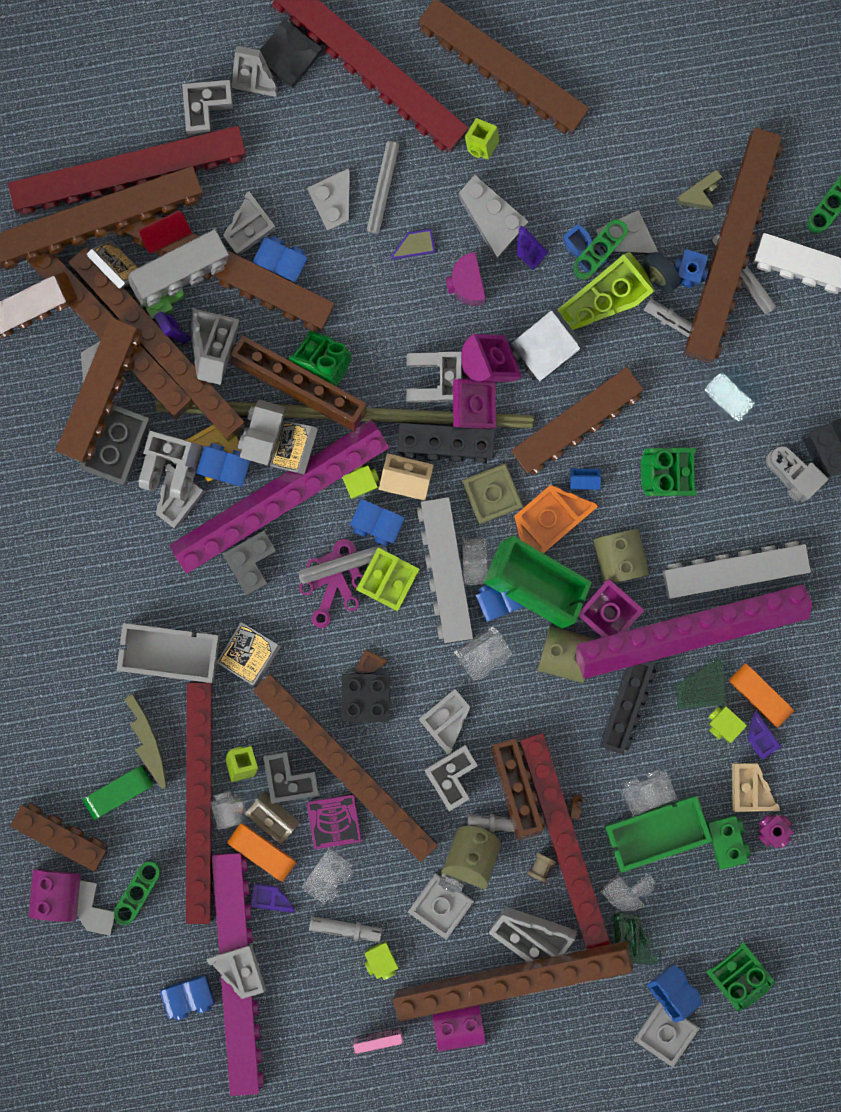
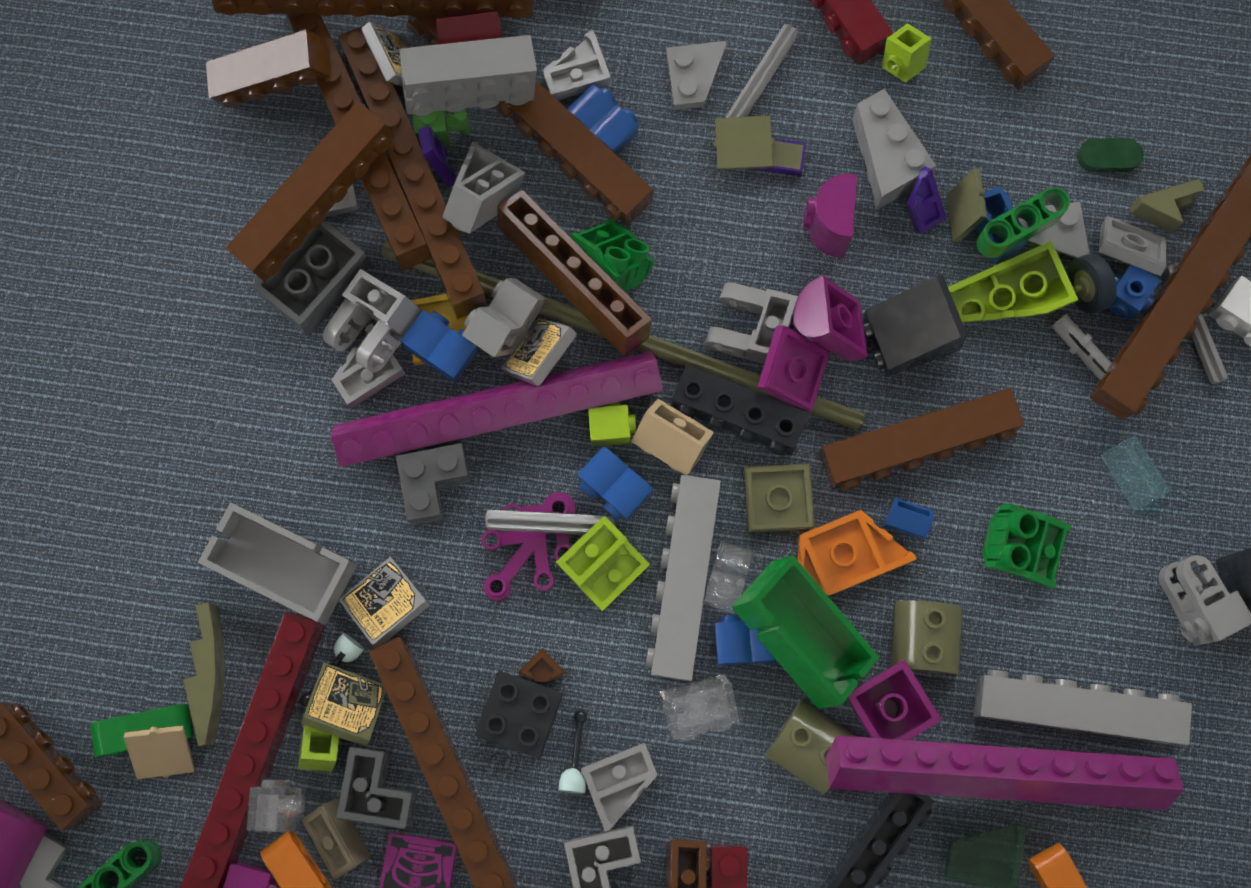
camera: 25 degrees right, 10 degrees down
(137, 801) = (159, 752): none -> tan piece
(234, 695) = (345, 650): none -> light aqua hinge
(248, 730) = (344, 704): none -> tile
(386, 244) = (743, 143): none -> olive piece
(414, 728) = (572, 779): none -> hinge
(558, 243) = (966, 205): none -> olive piece
(650, 165) = (1110, 155): none -> dark green tile
(683, 234) = (1133, 245): none -> light grey tile

